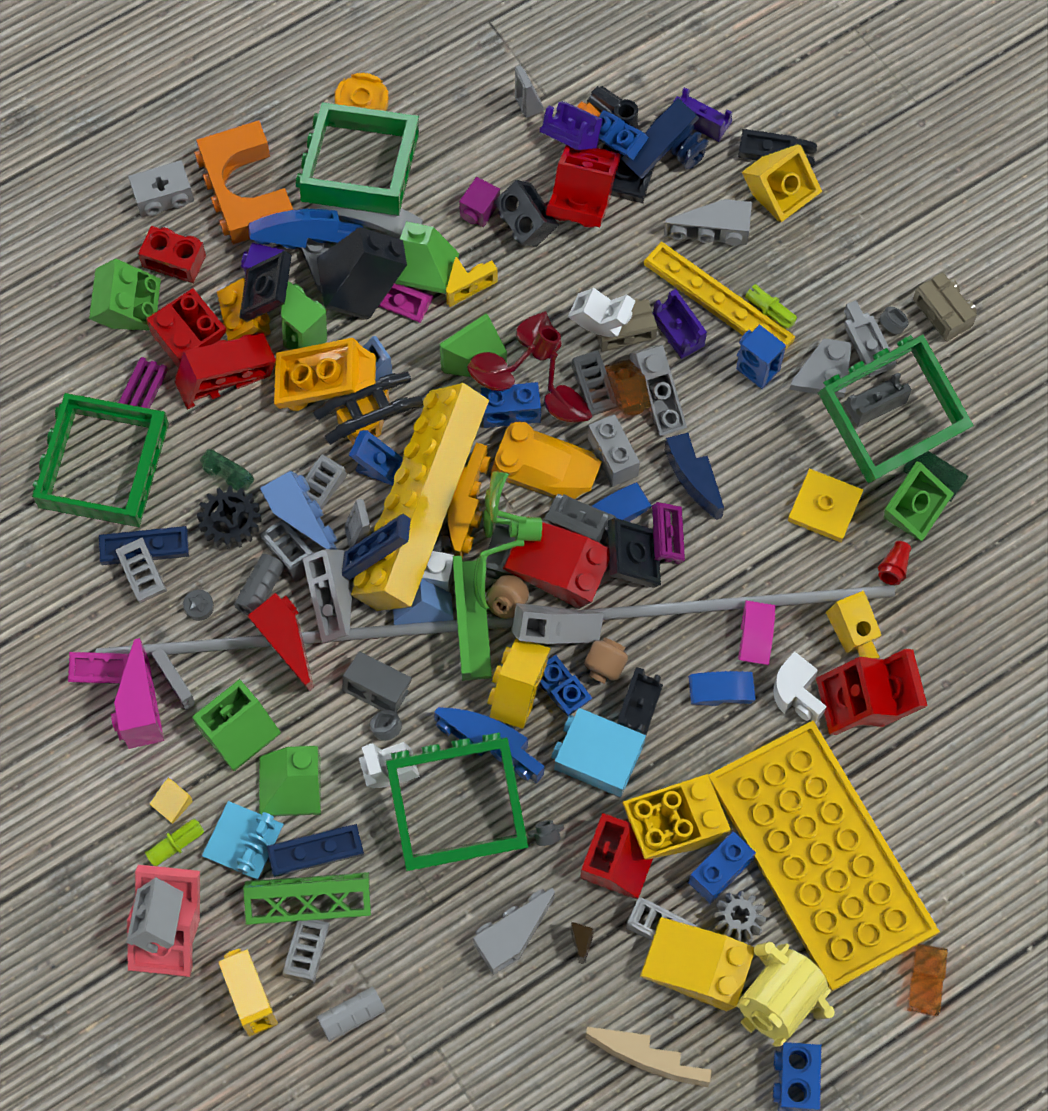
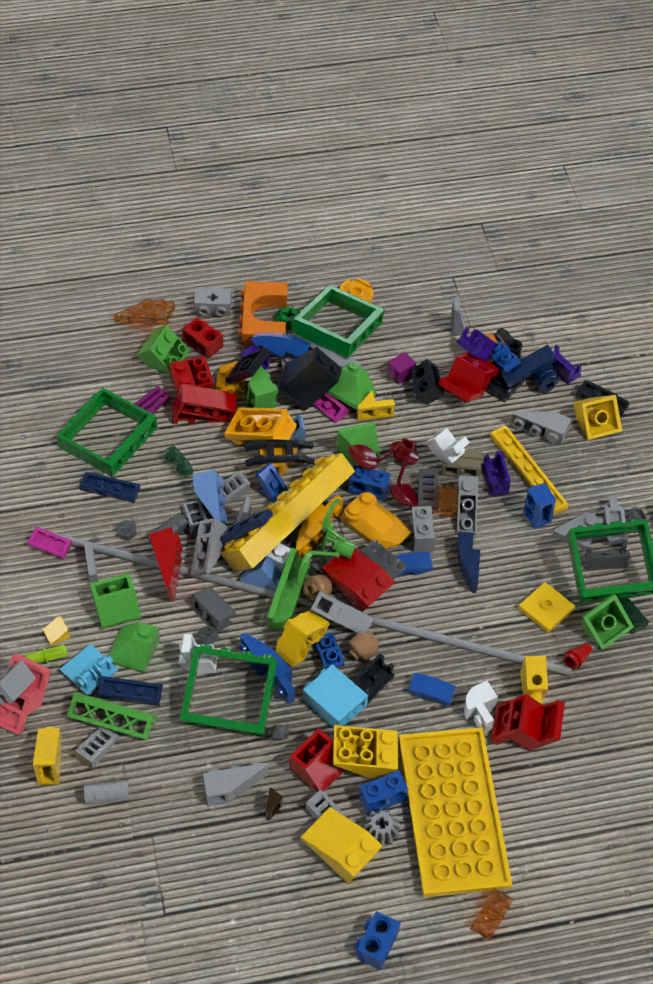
camera: 20 degrees right, 15 degrees down
(74, 242) = (147, 312): none -> clear orange wing
(136, 703) = (62, 565): dark pink slope -> none
(152, 591) = (105, 511): light grey slope -> none
(242, 512) = (174, 482): black gear -> none
(270, 176) = (281, 315): none -> green gear
(633, 553) = (408, 590): black tile -> none
(635, 1050) = (278, 883): tan slope -> none
(664, 531) = (431, 599): magenta tile -> none
(757, 632) = (468, 664): dark pink slope -> none
(771, 307) = (560, 483): lime axle -> none
(784, 993) = (389, 880): light yellow container -> none

